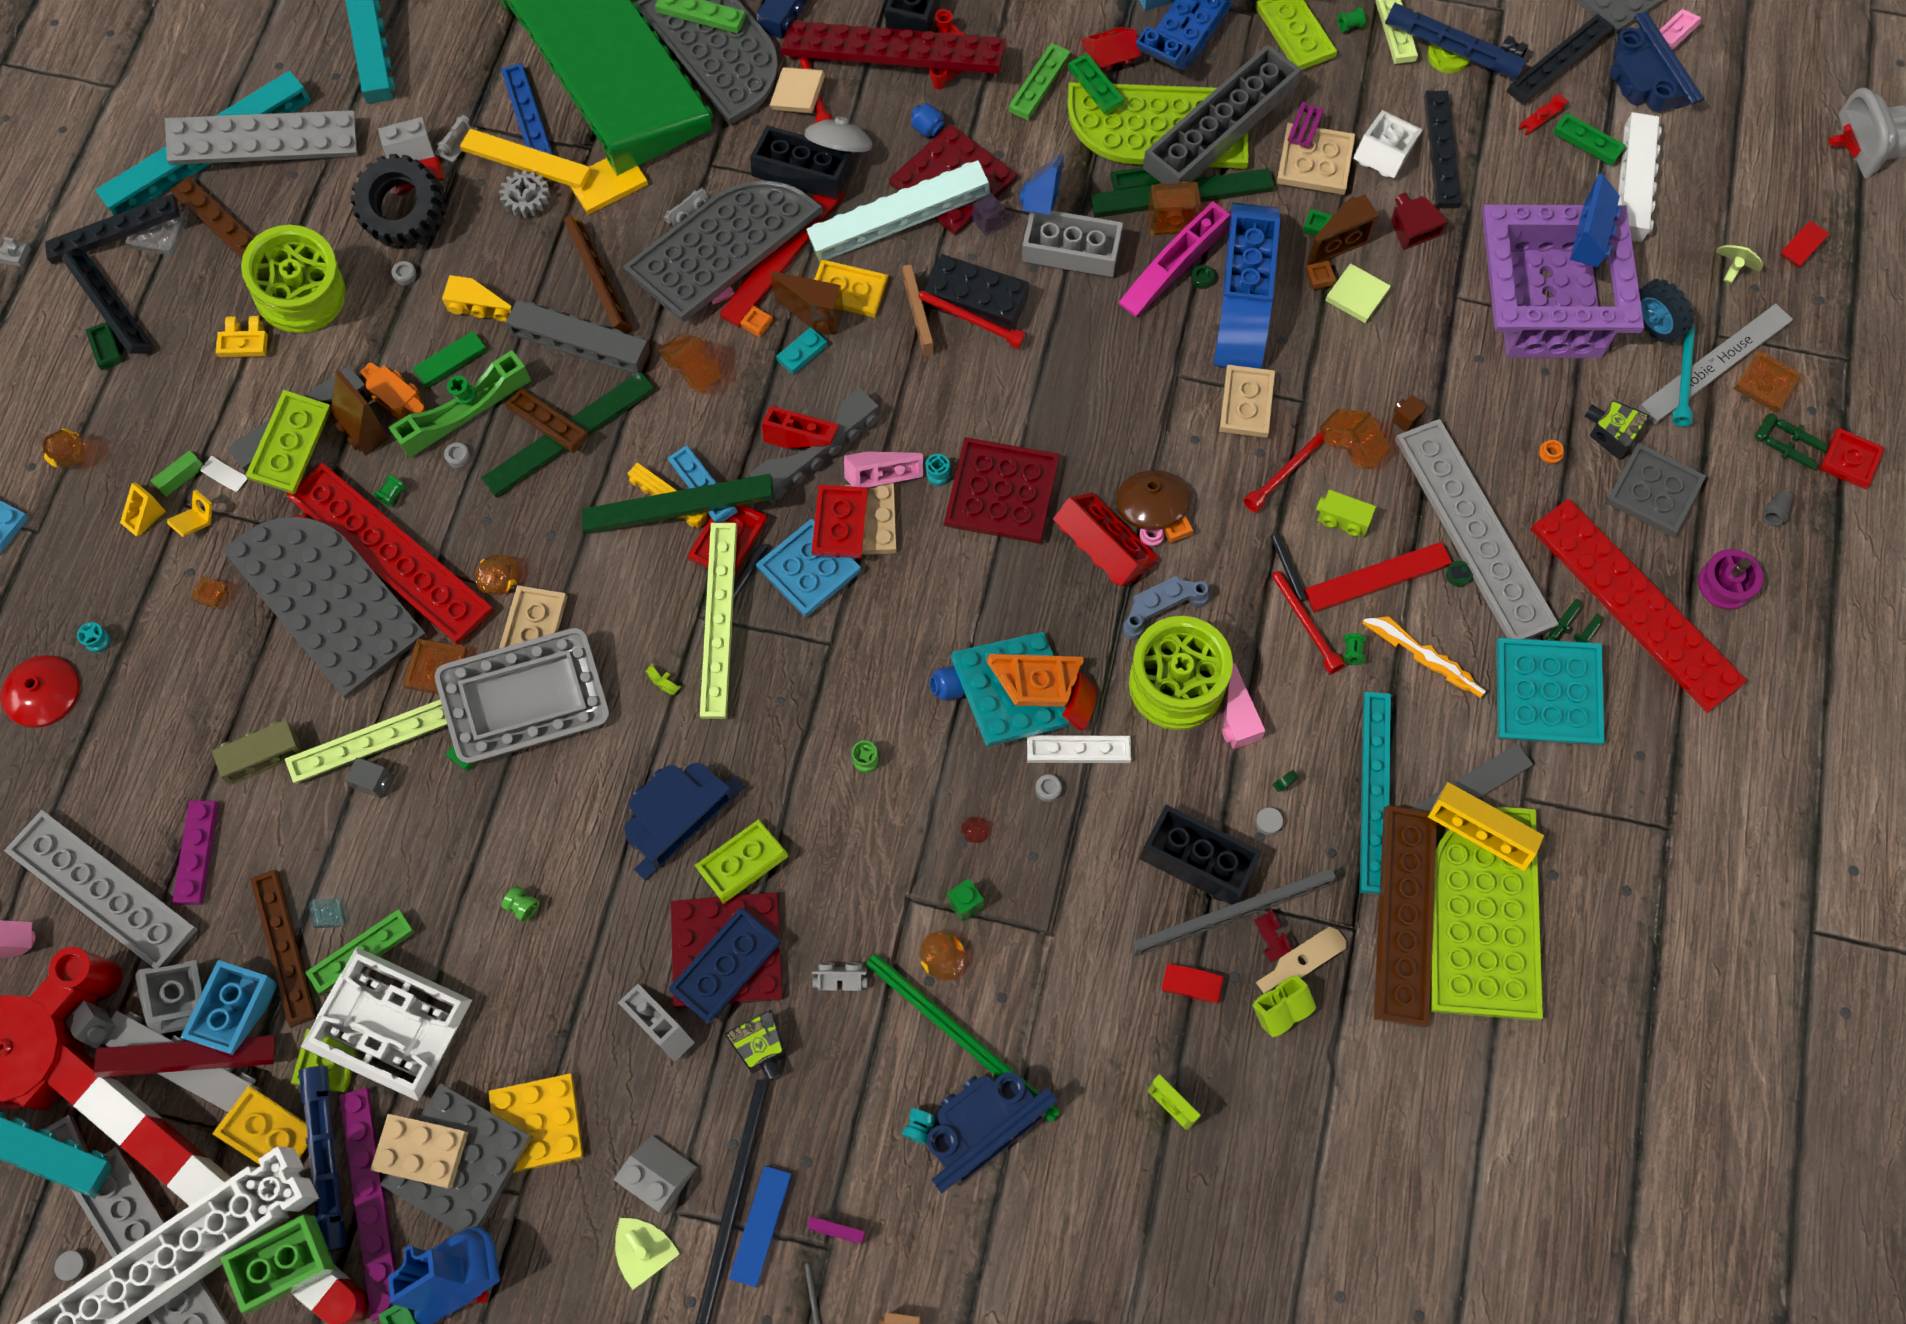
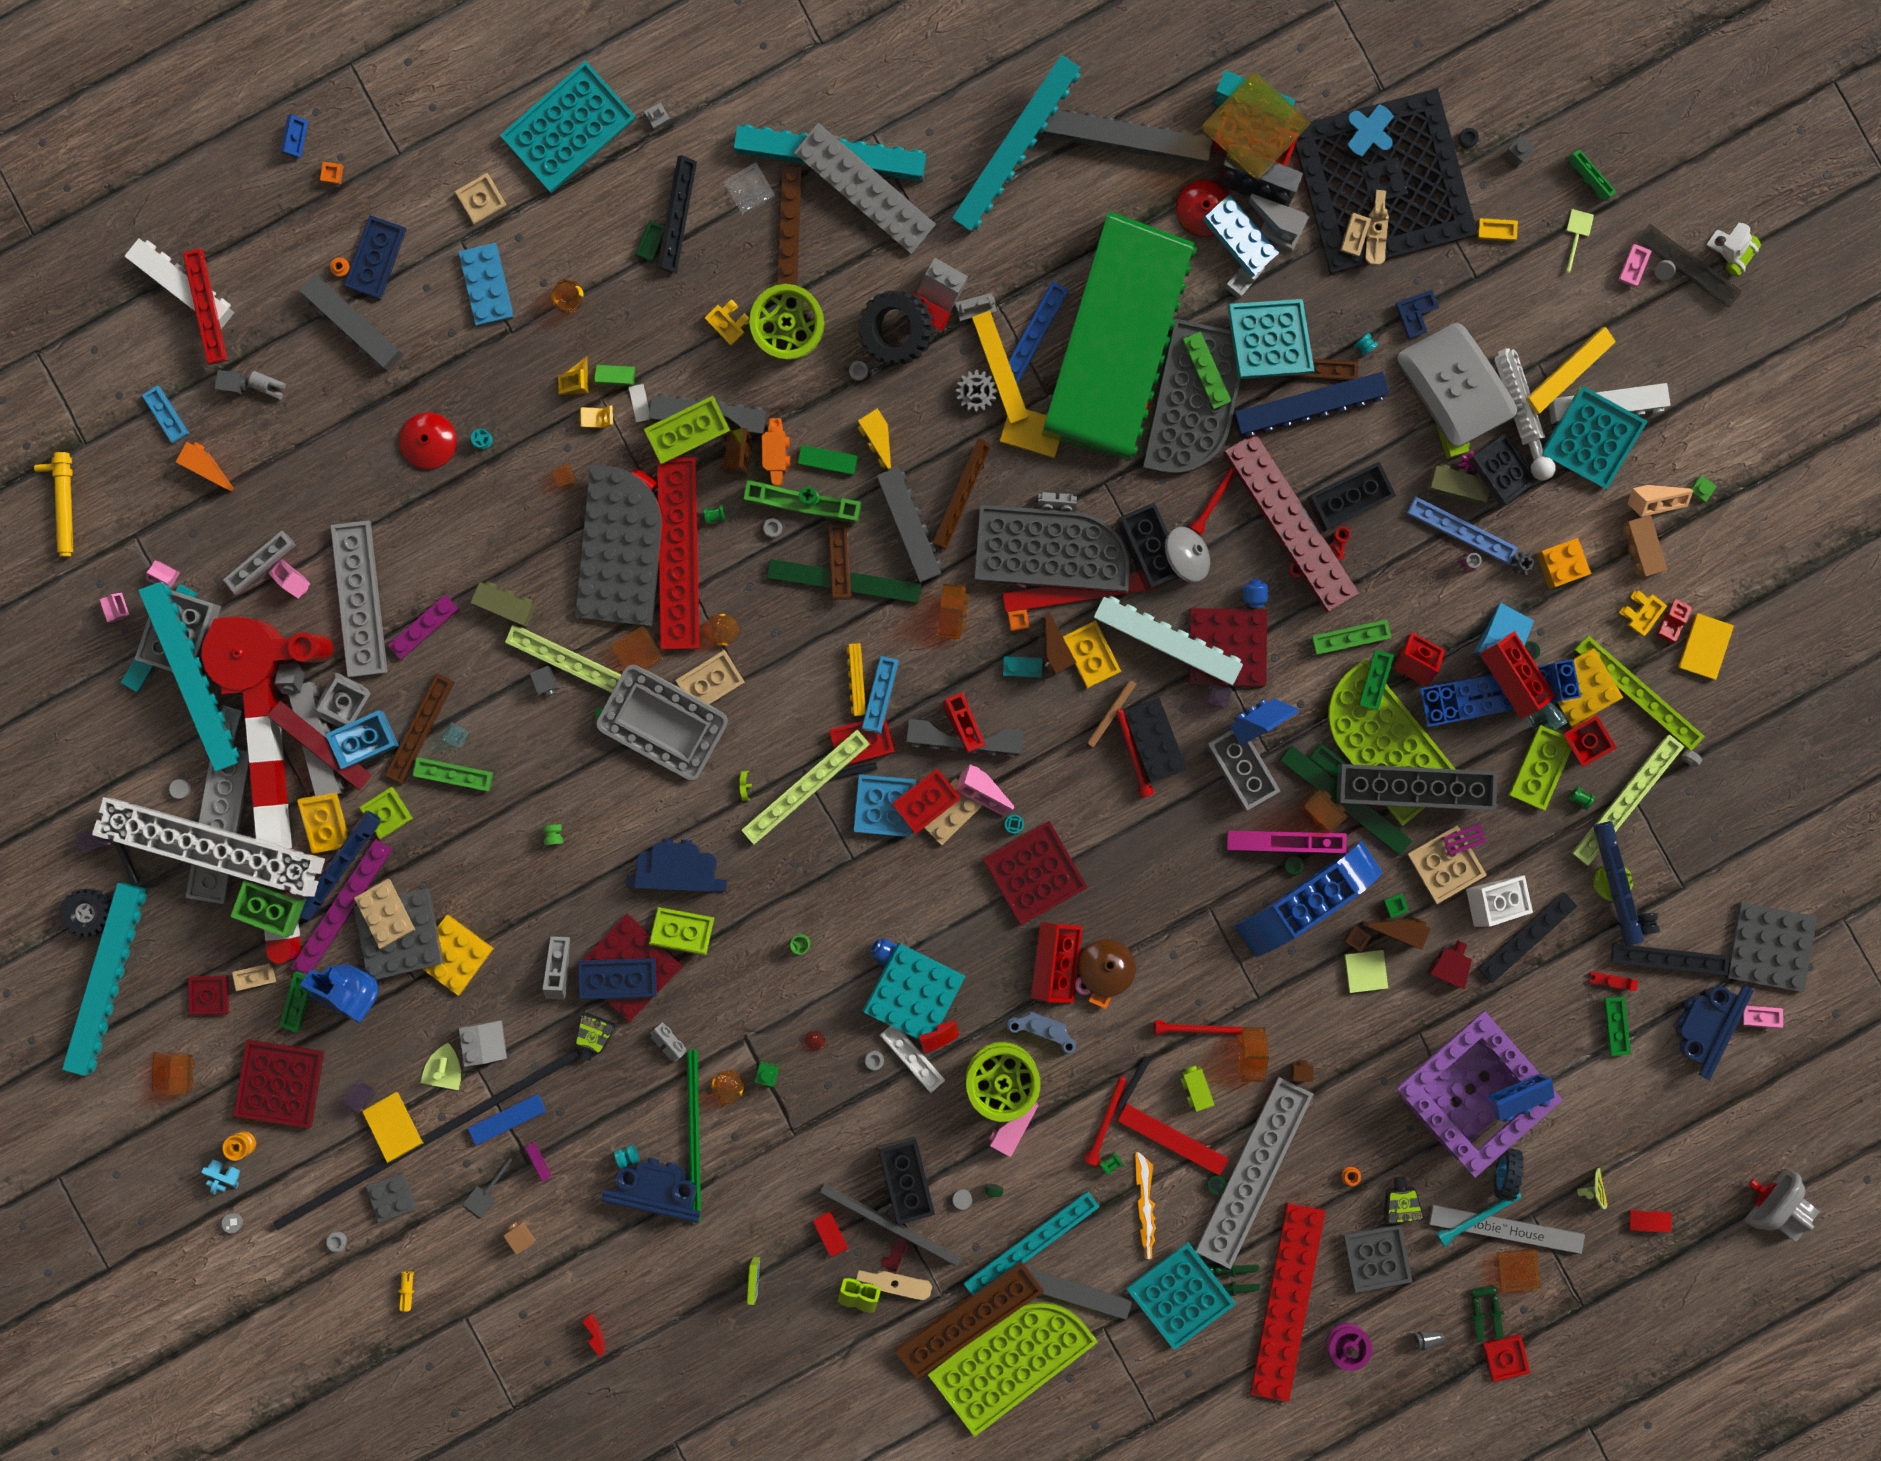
camera: 45 degrees right, 20 degrees up
(113, 228) = (724, 163): black plate -> none
(386, 1023) = (430, 830): white piece -> none
(677, 503) = (853, 695): dark green tile -> none
(797, 90) = (1204, 489): tan tile -> none
(1036, 678) = (926, 1004): orange wing -> none
(1247, 401) = (1225, 967): tan plate -> none
(1486, 826) = (1058, 1326): yellow brick -> none
(1638, 172) = (1612, 1078): white brick -> none

